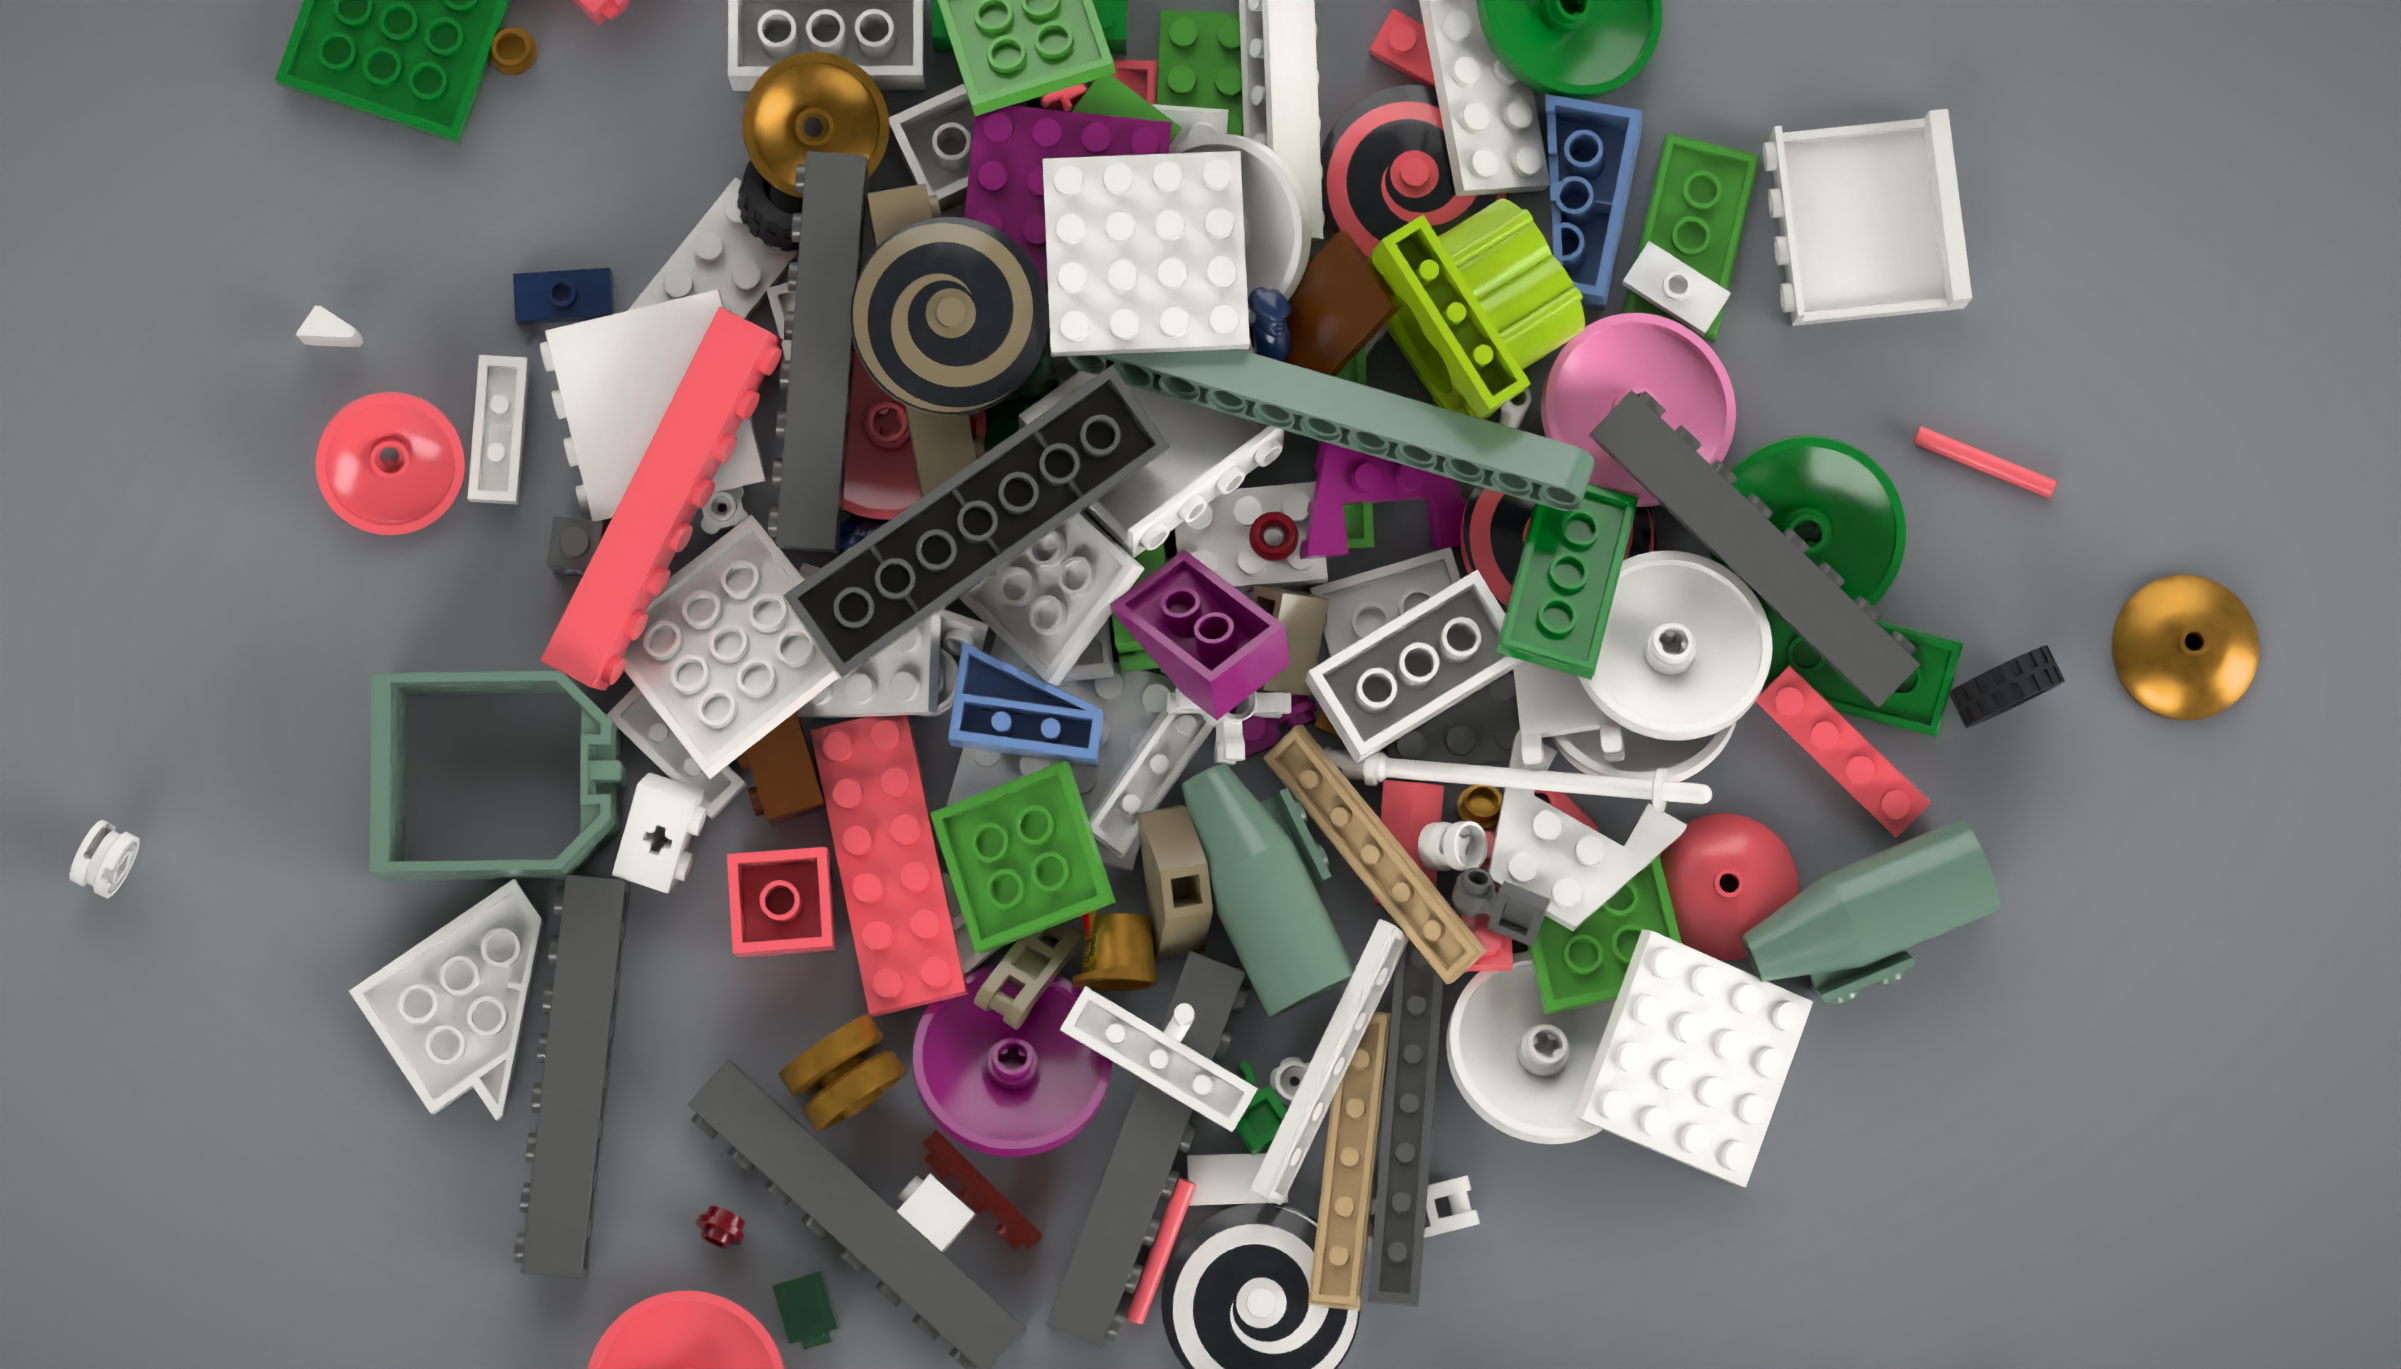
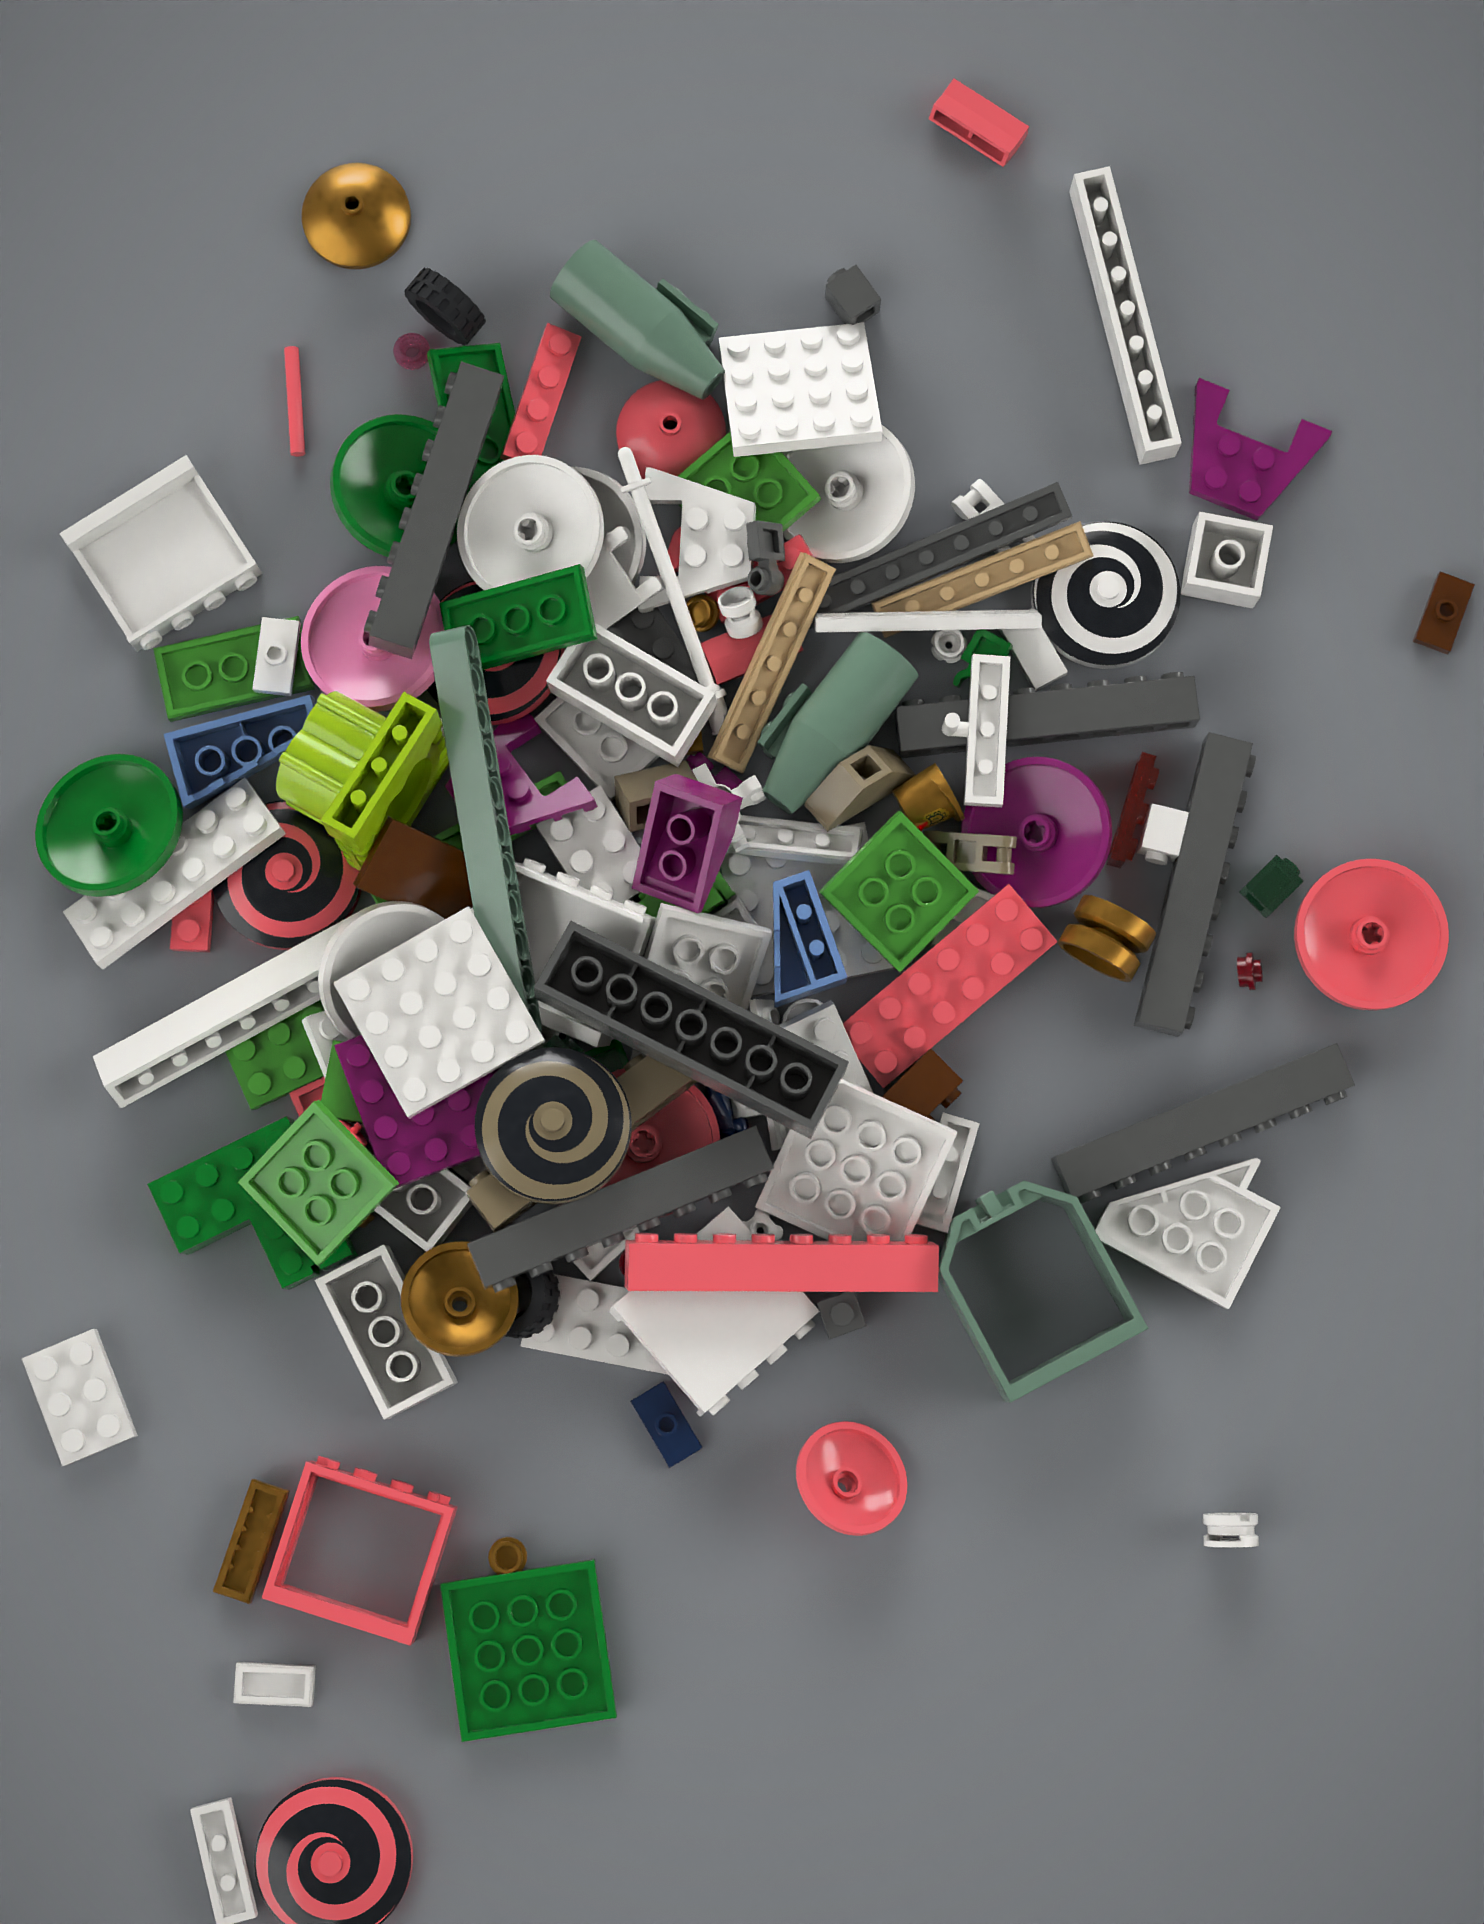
camera: 115 degrees left, 0 degrees up
(326, 329) = (776, 1578): white slope -> none
(498, 429) = (785, 1417): white plate -> none
(642, 854) = (1029, 1151): white brick -> none
(781, 902) = (1012, 1041): coral brick -> none
(1160, 1251) = (1113, 674): coral bar -> none
(1270, 325) = (444, 904): dark blue arm -> none
(1276, 521) = (591, 819): dark red plate -> none
(1784, 1187) = (852, 296): none -> dark grey brick
(1991, 621) = (408, 341): none -> clear pink plate

